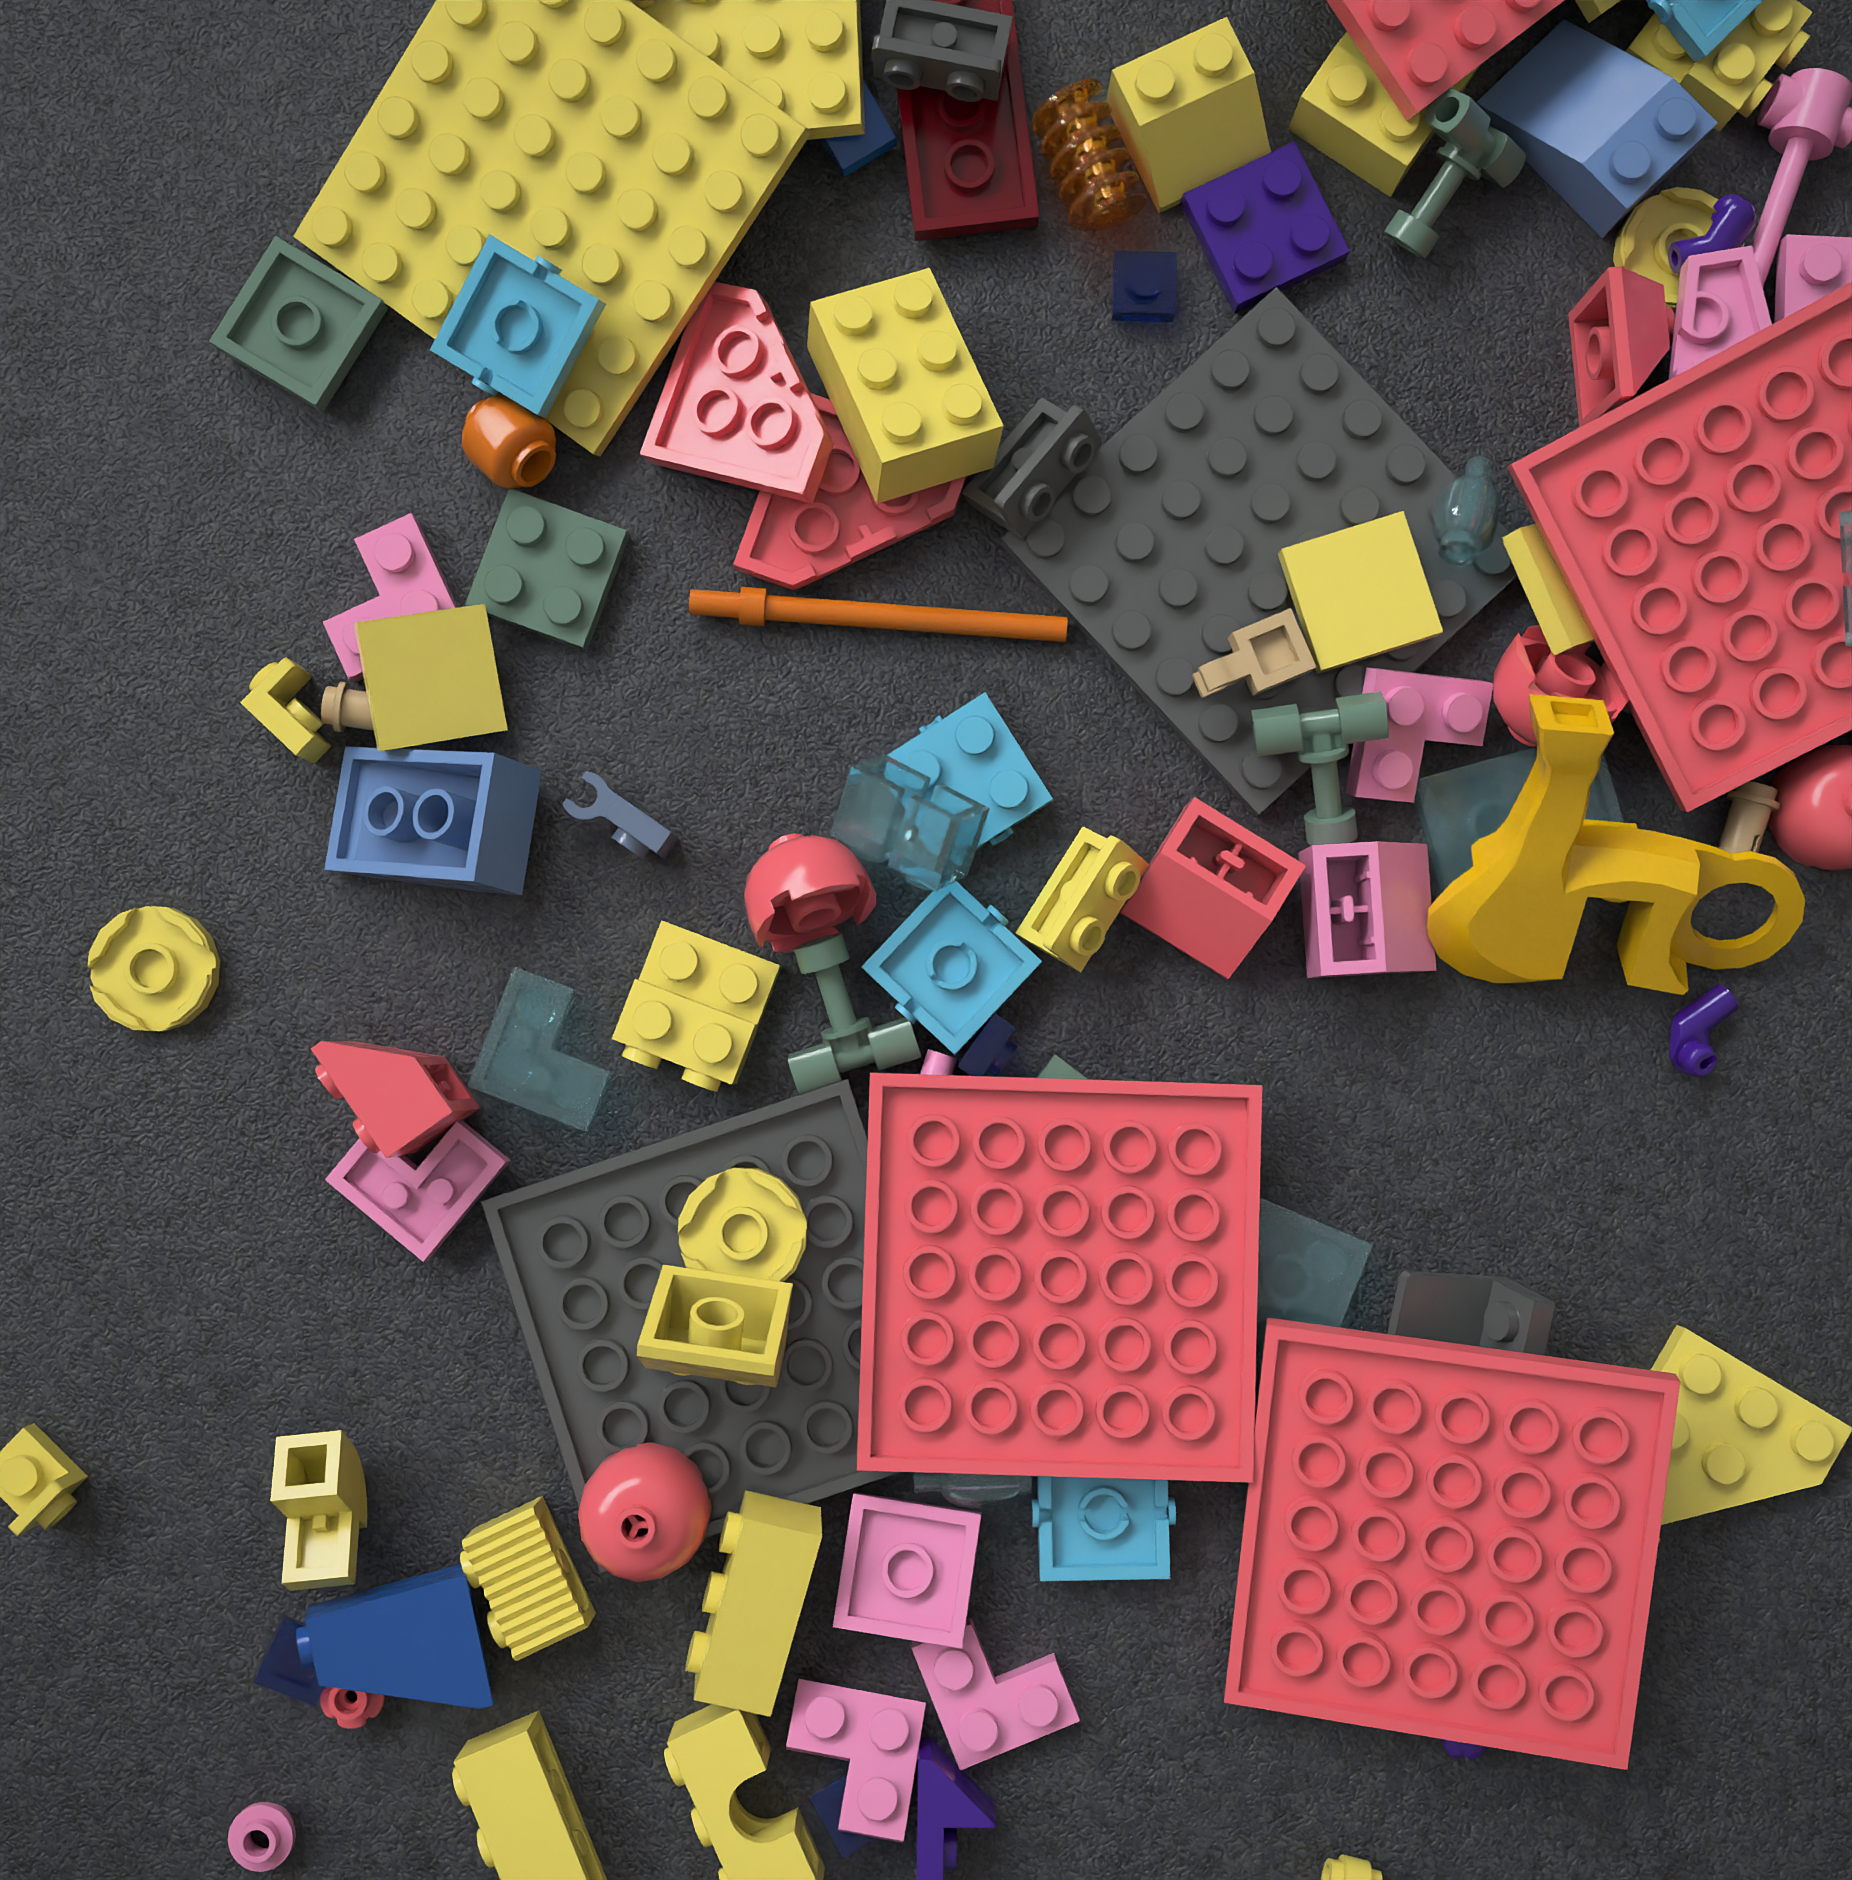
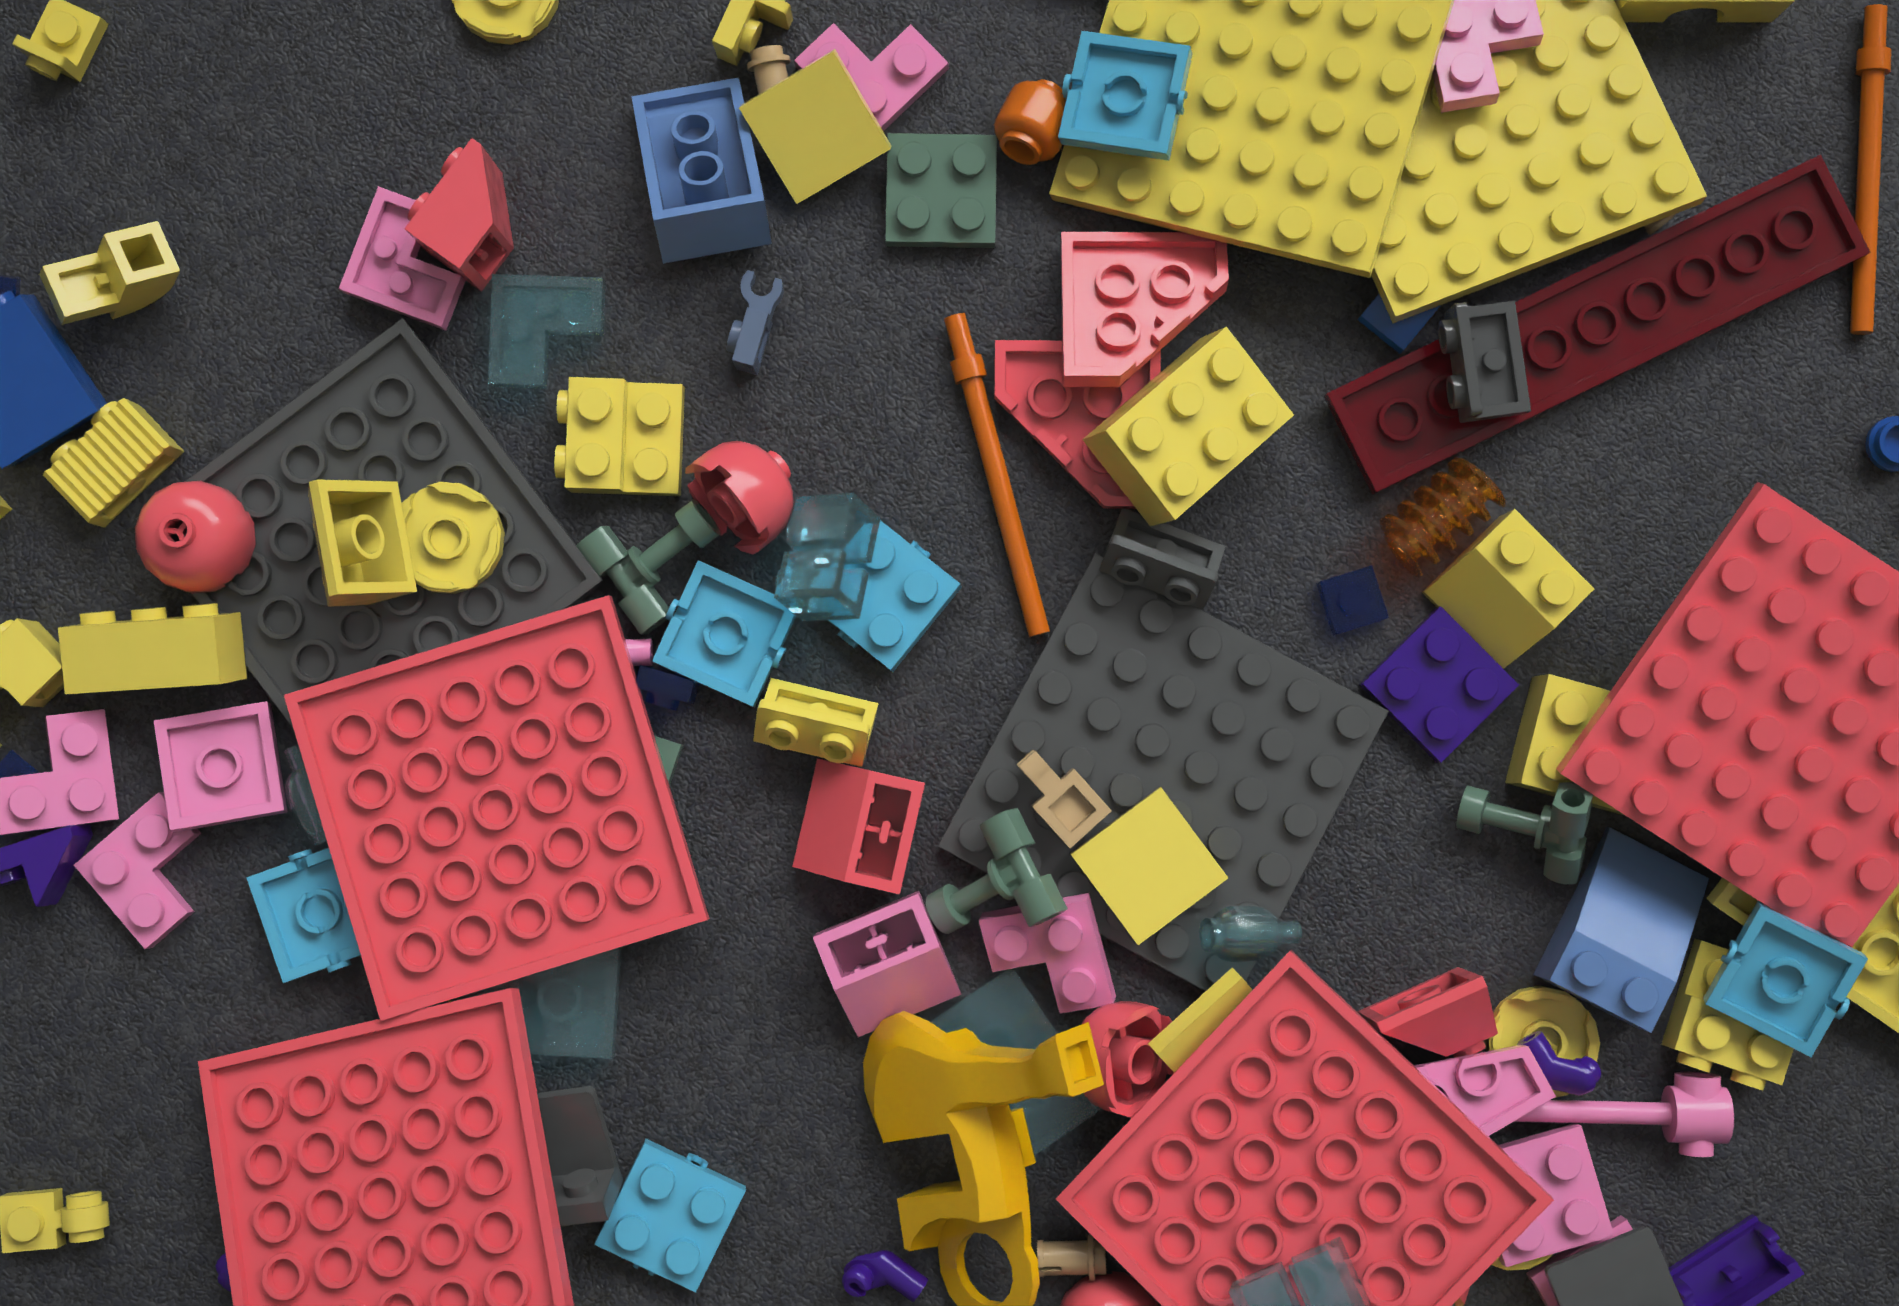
camera: 70 degrees right, 0 degrees up
(1560, 1236) = (670, 1215): none -> medium azure plate

